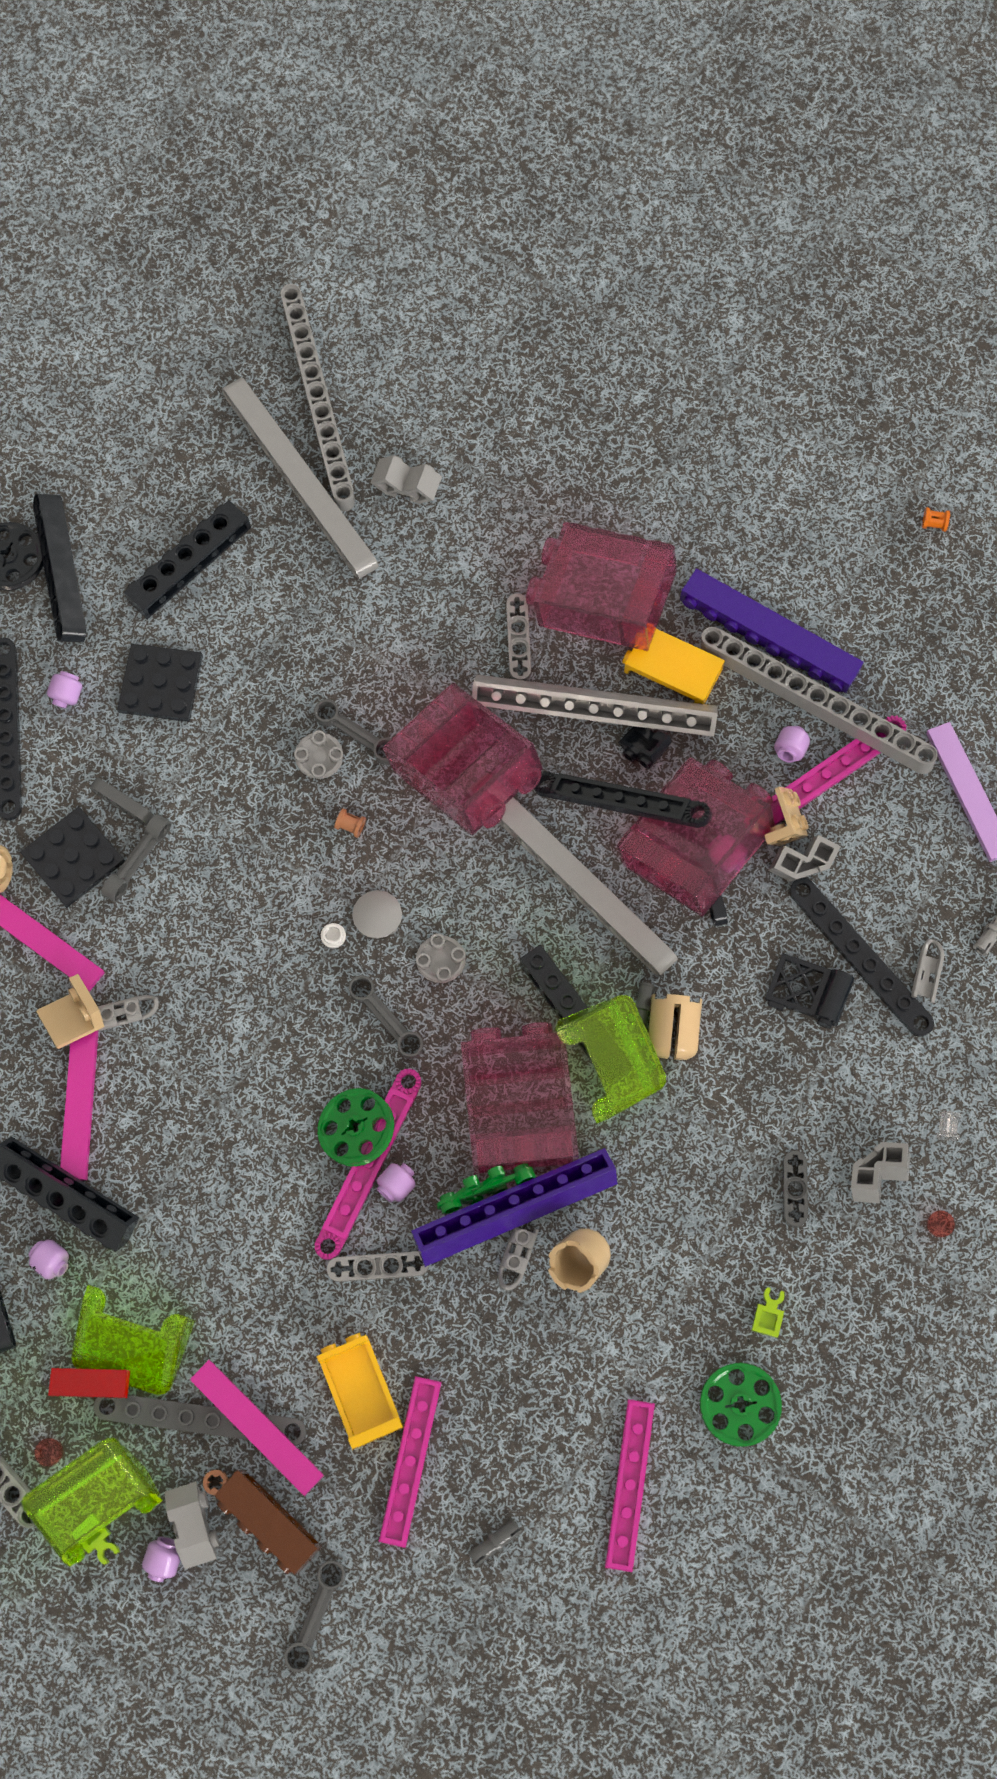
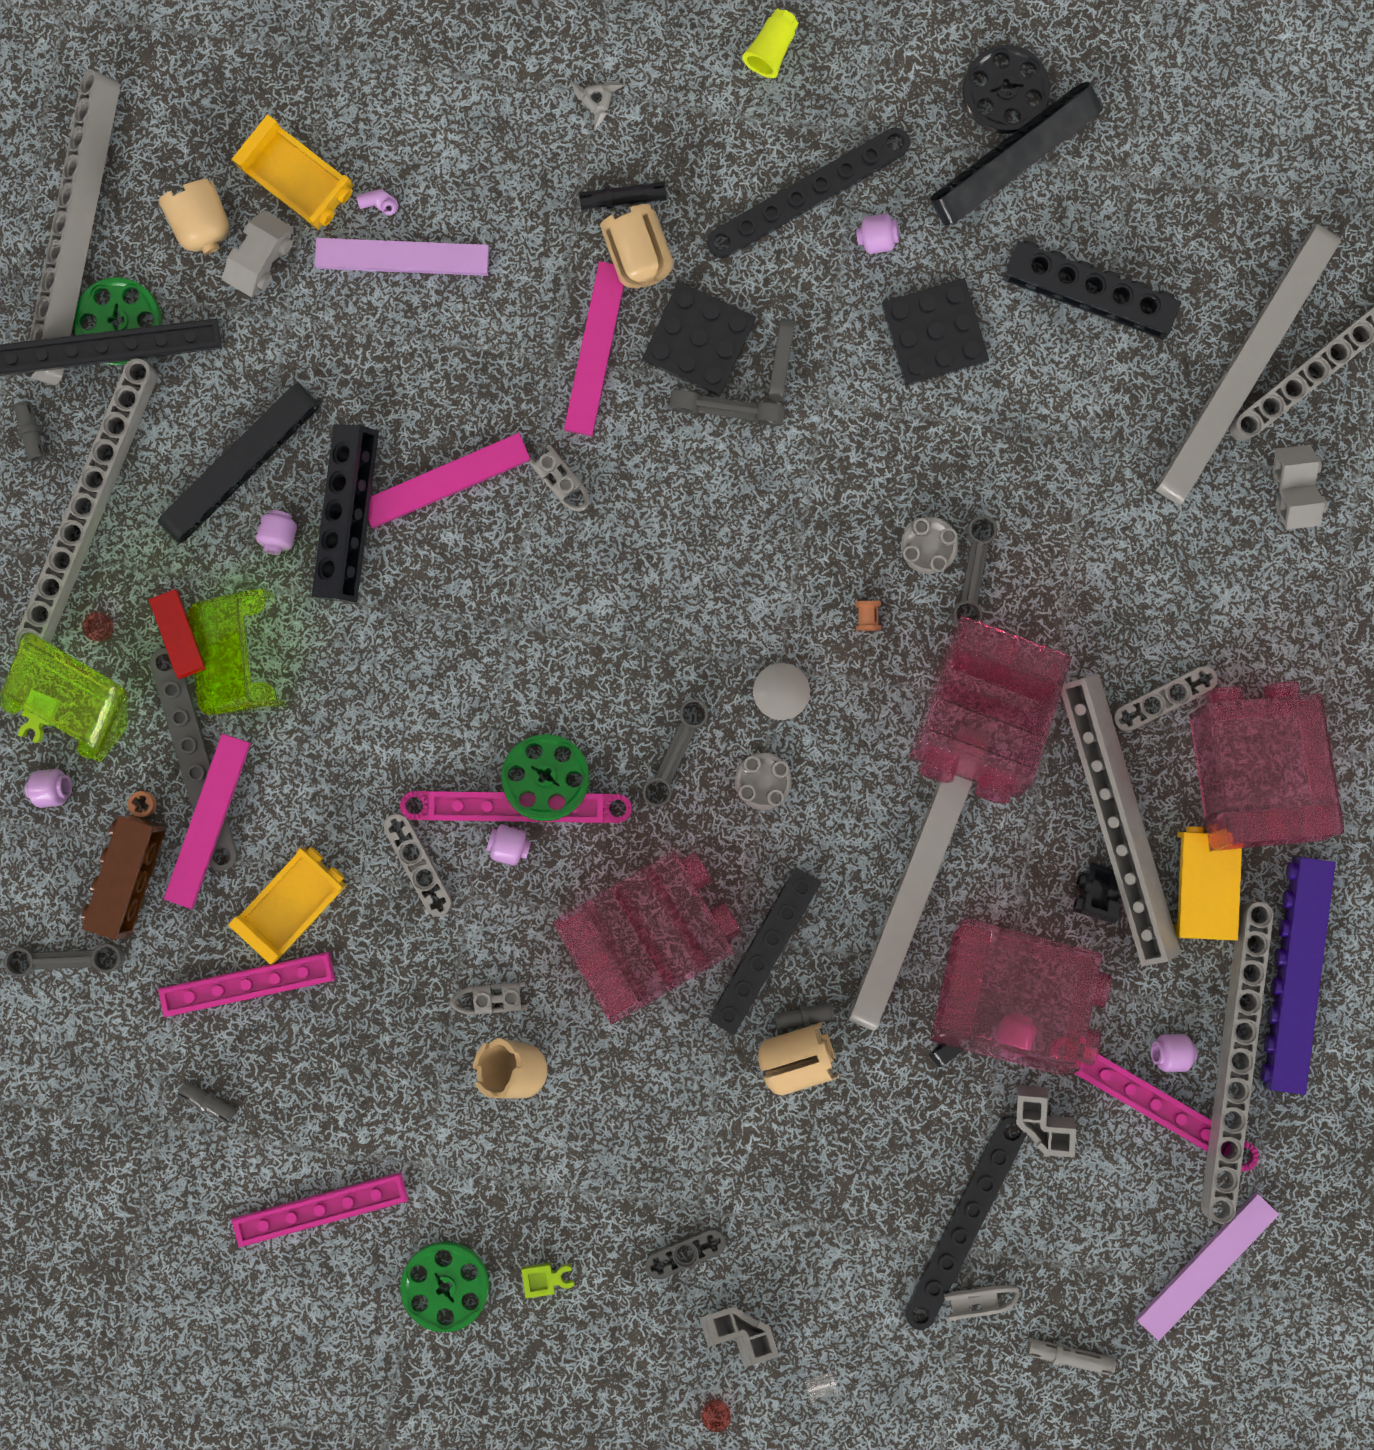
camera: 65 degrees right, 15 degrees up
(71, 1015) = (527, 427): tan bracket -> none
(187, 1512) = (98, 792): light grey brick -> none
(333, 935) = (737, 656): white plate -> none
(474, 1190) = (509, 913): green plant -> none
(514, 1207) = (535, 979): dark purple brick -> none
(618, 1052) = (740, 1016): clear neon green windscreen -> none
(624, 799) = (1020, 905): black plate -> none
(795, 822) = (1080, 1097): tan bracket -> none
(830, 996) = (899, 1208): black piece -> none

